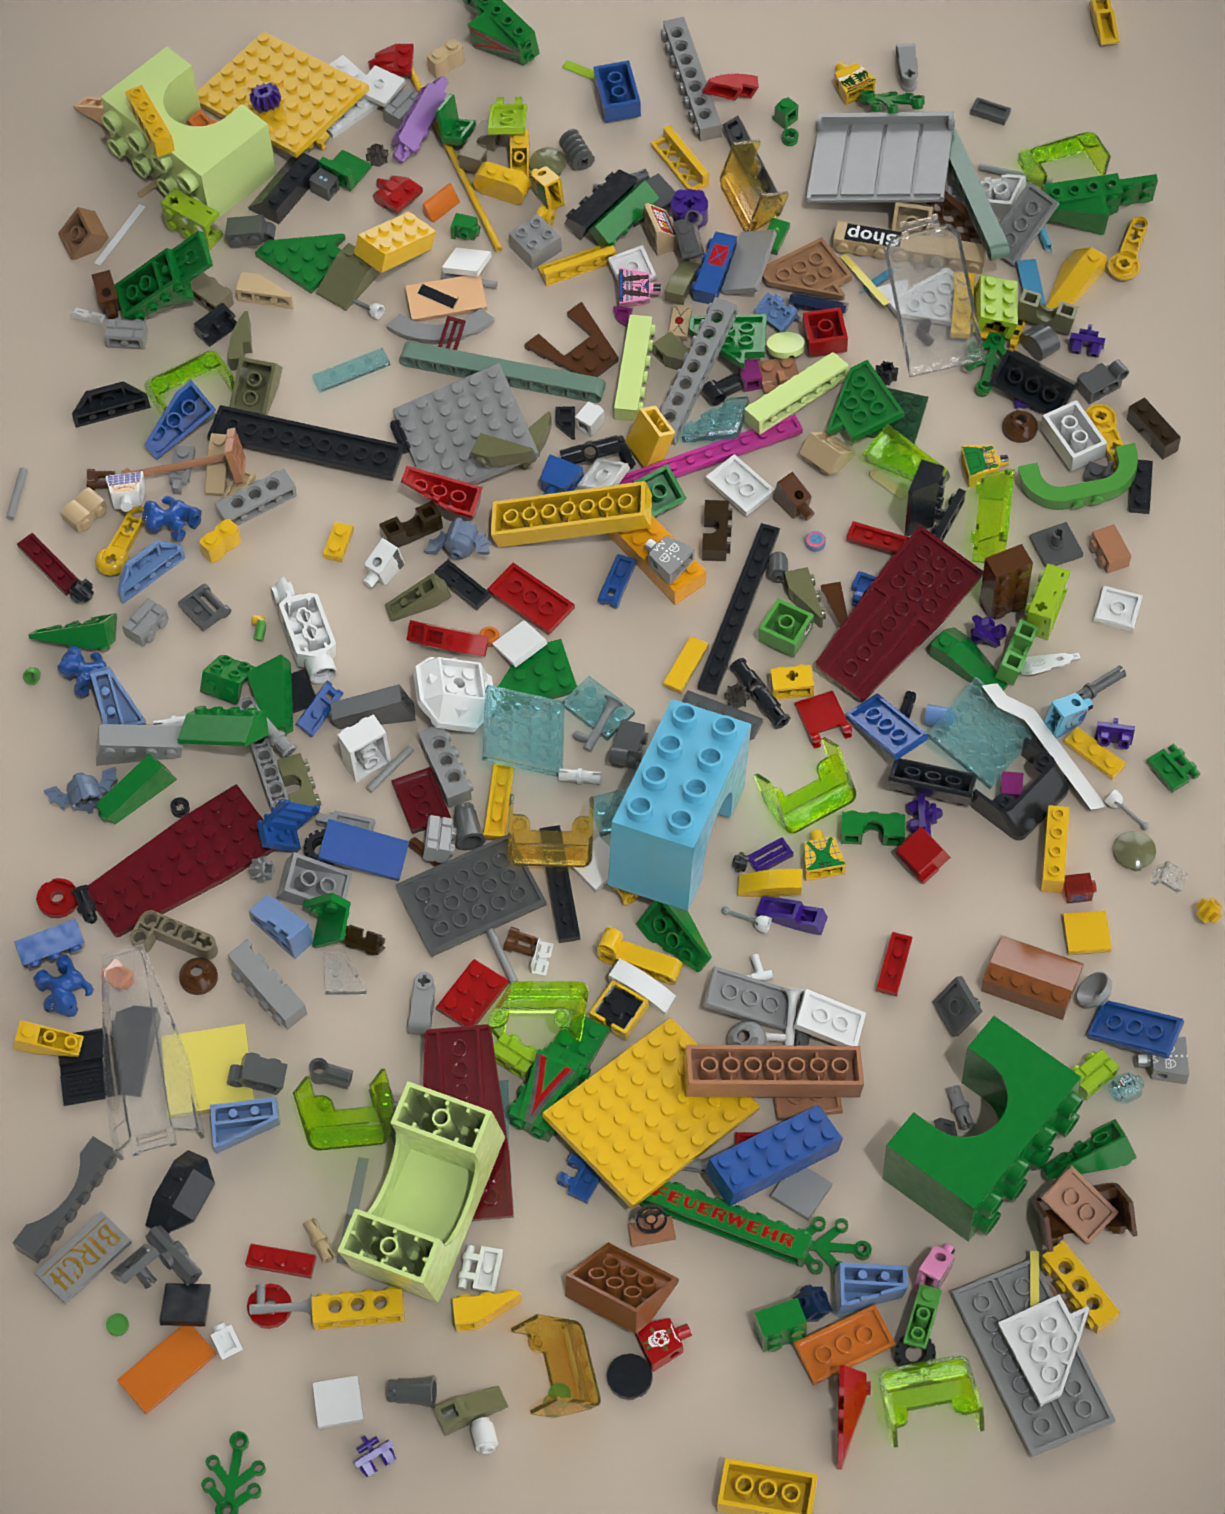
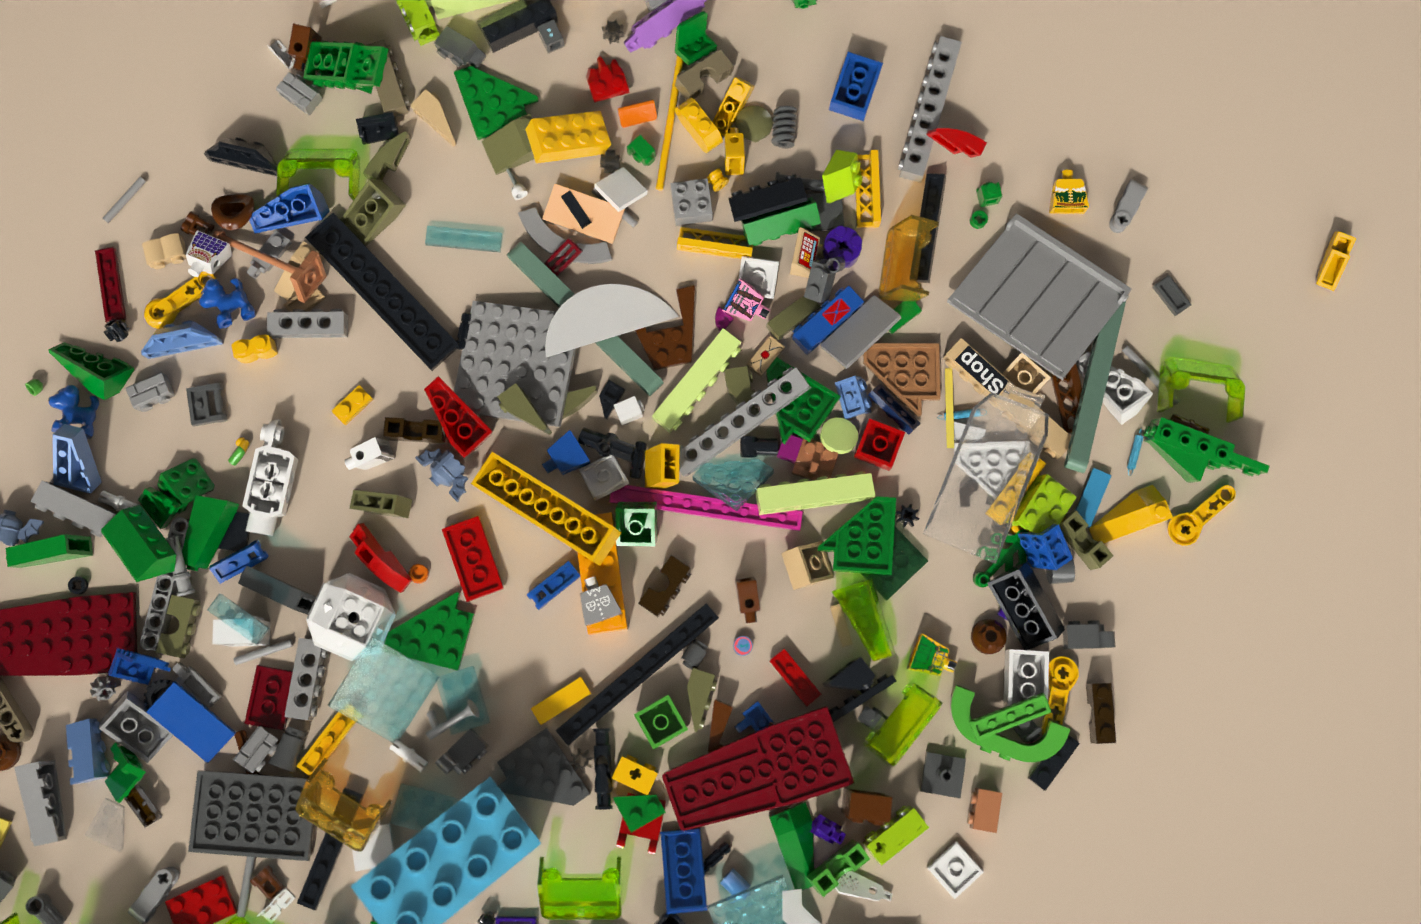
camera: 25 degrees right, 20 degrees up
(130, 448) = (232, 211): none -> reddish brown hat
(216, 697) = (158, 506): none -> green wing
(347, 168) = (578, 30): green bracket -> none
(361, 716) = (238, 619): none -> clear light blue plate
(442, 247) = (610, 161): none -> clear smoke gear
(463, 584) = (425, 510): black plate -> none
(507, 117) = (742, 62): lime tile -> none
(519, 354) = (603, 314): none -> white sticker
(519, 643) = (435, 600): white tile -> none
(581, 70) = (841, 39): lime piece -> none
(653, 154) = (841, 176): none -> lime slope
(740, 485) = (713, 552): white plate -> none
(813, 706) = (639, 809): none -> green wing
(869, 97) = (1072, 221): green plant -> none
(962, 527) = (872, 718): none -> dark grey brick
(1017, 327) = (1046, 548): none -> blue bracket
(1026, 220) = (1124, 439): light grey tile -> none
(1078, 461) = (1010, 716): none -> bright green tile
(1087, 338) = (1106, 595): dark purple hips -> none

